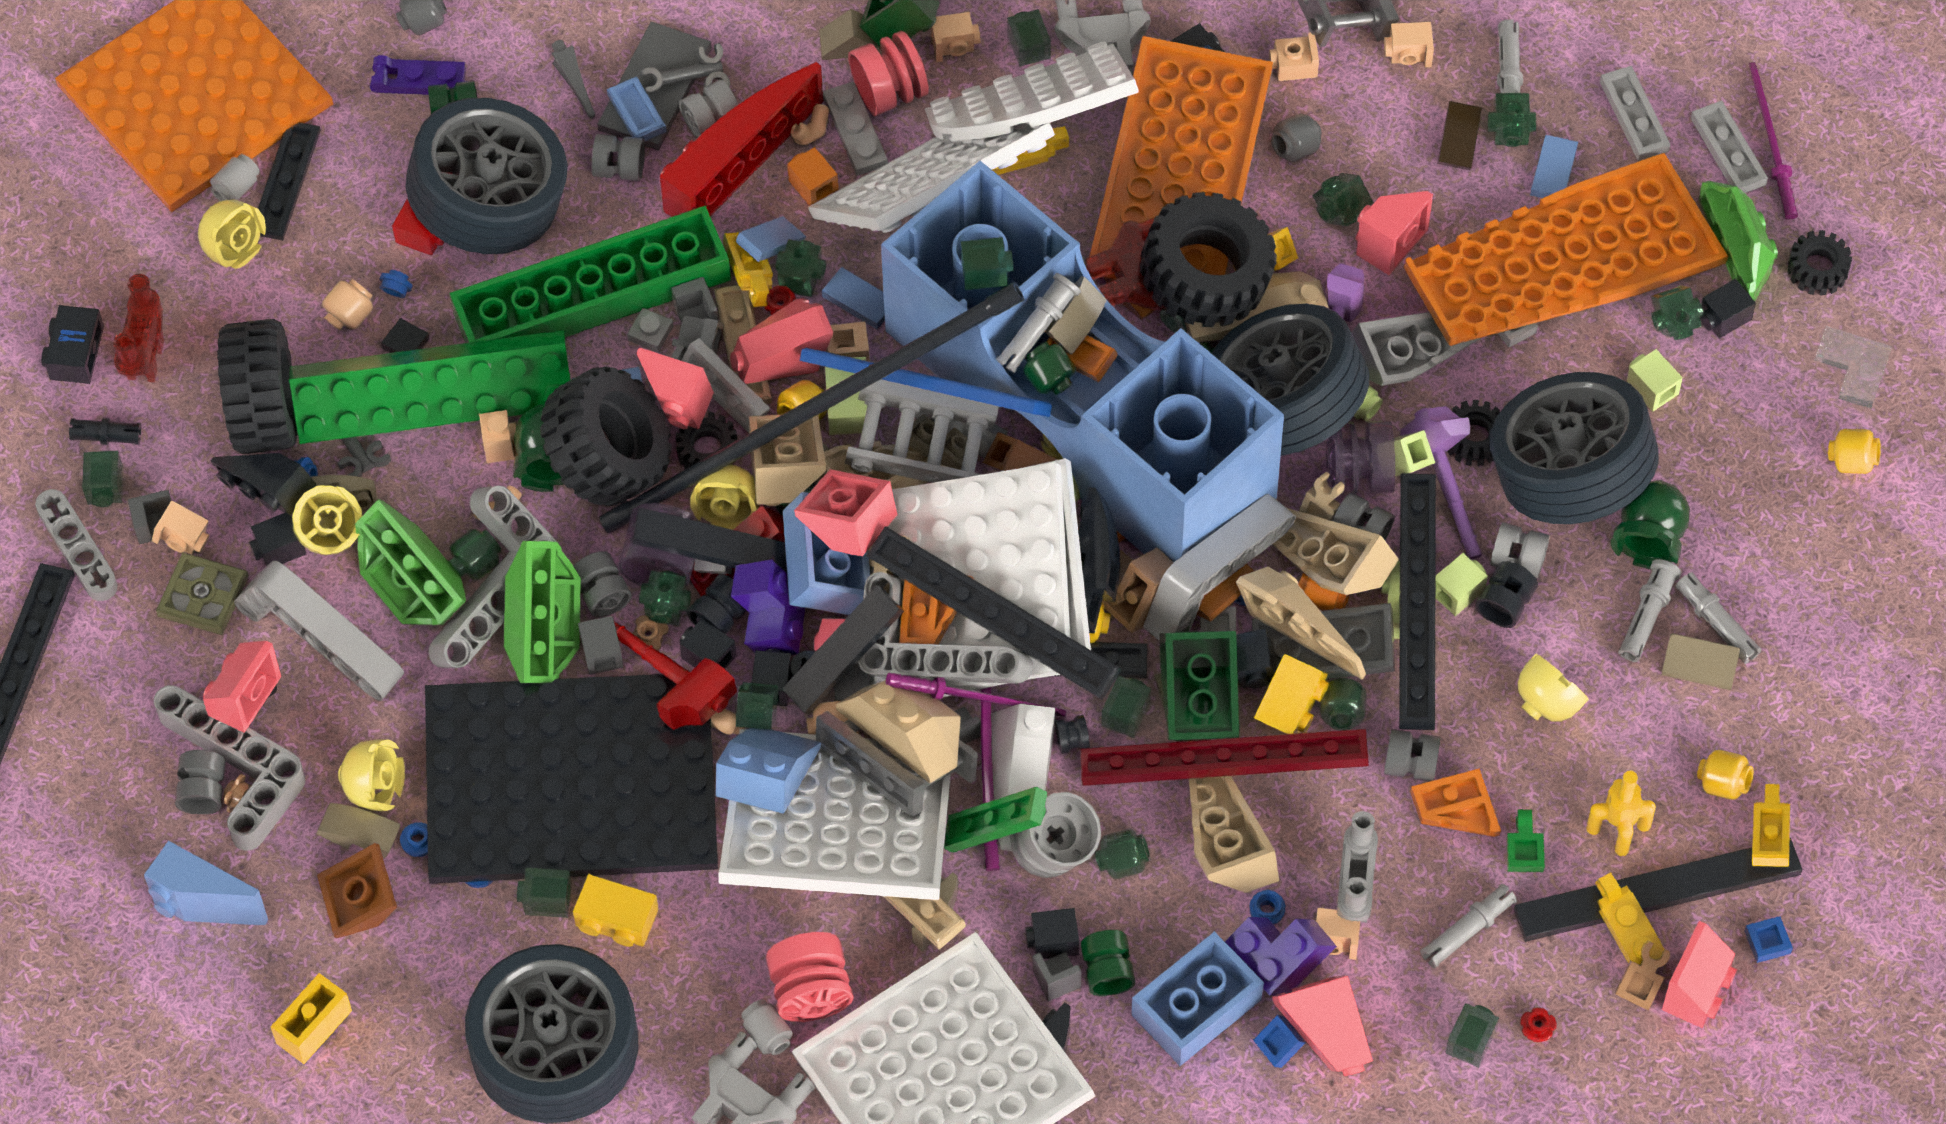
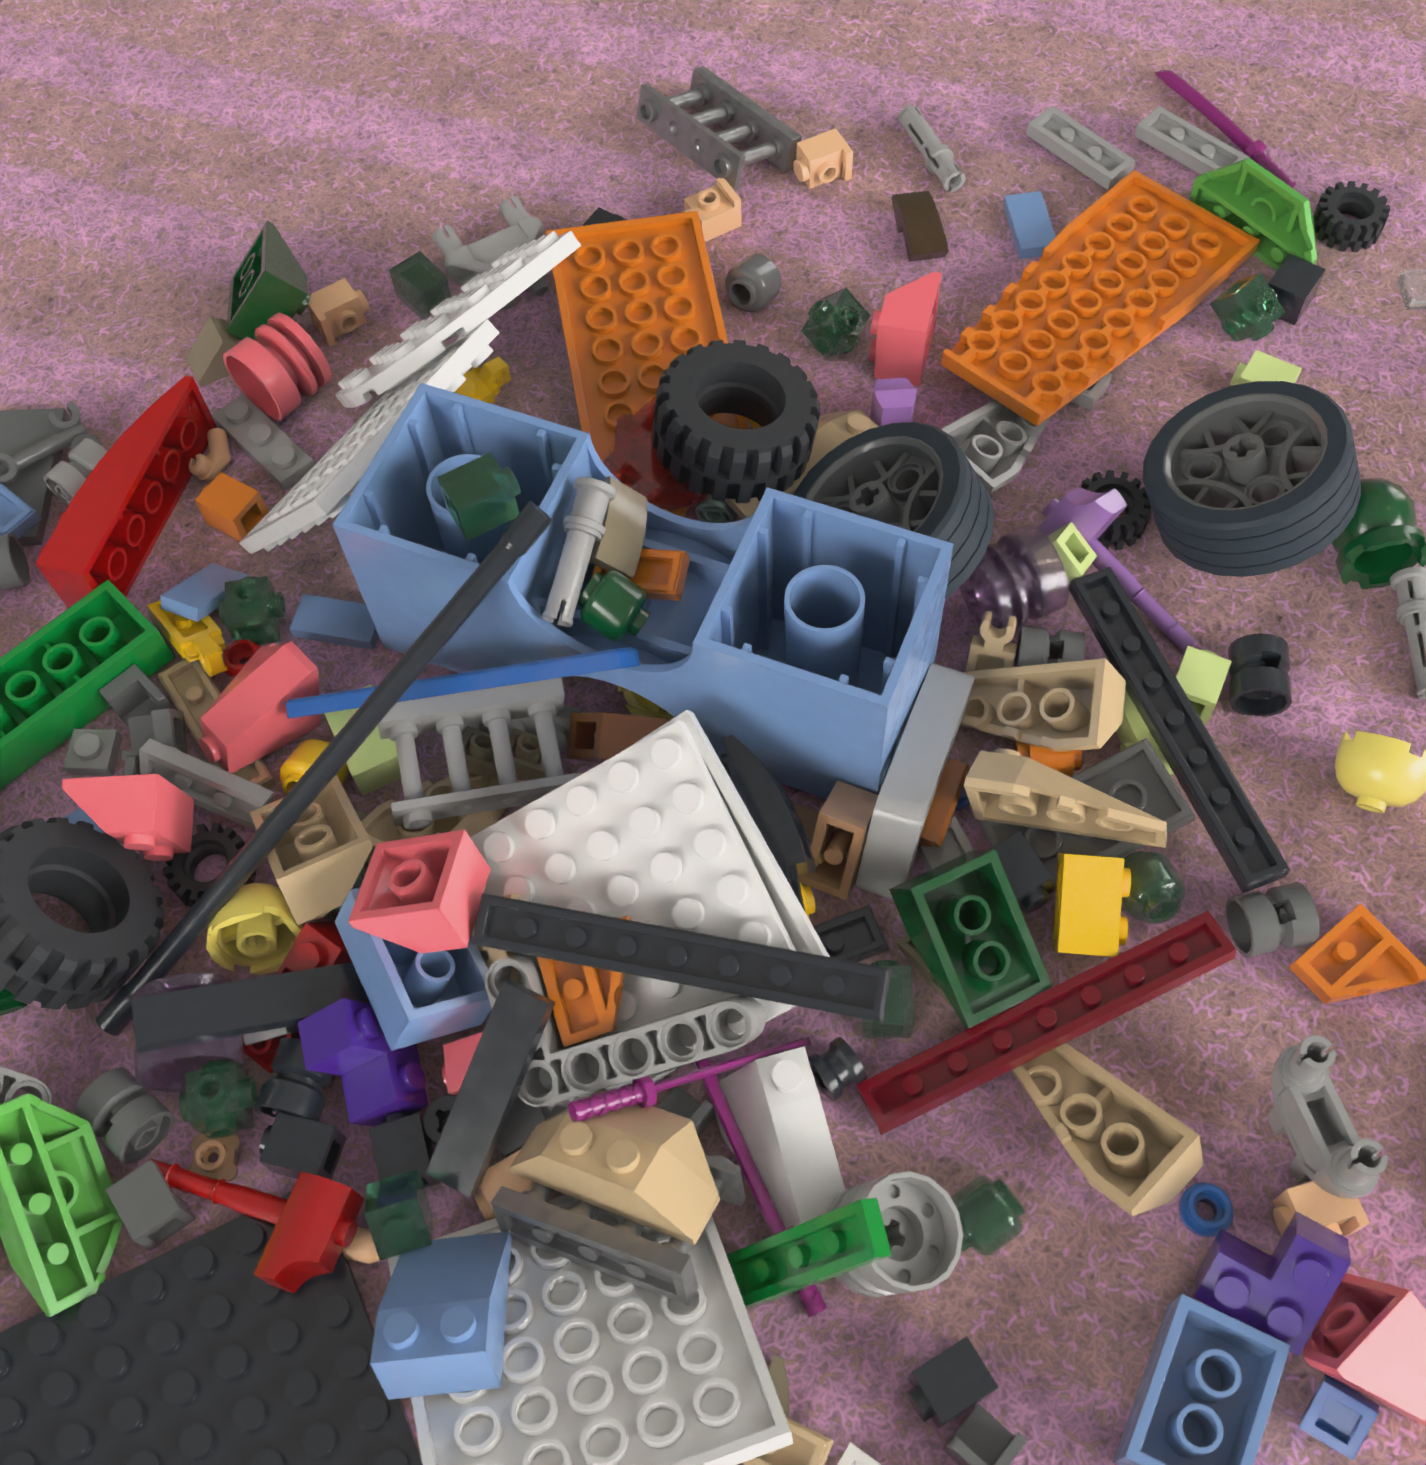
camera: 20 degrees left, 0 degrees up
(850, 340) = (343, 671): light nougat brick -> none
(1107, 963) = (1053, 1405): dark green wheel -> none
(1511, 119) = (966, 189): clear green brick -> none
(1532, 550) = (1231, 616): light grey wheel -> none

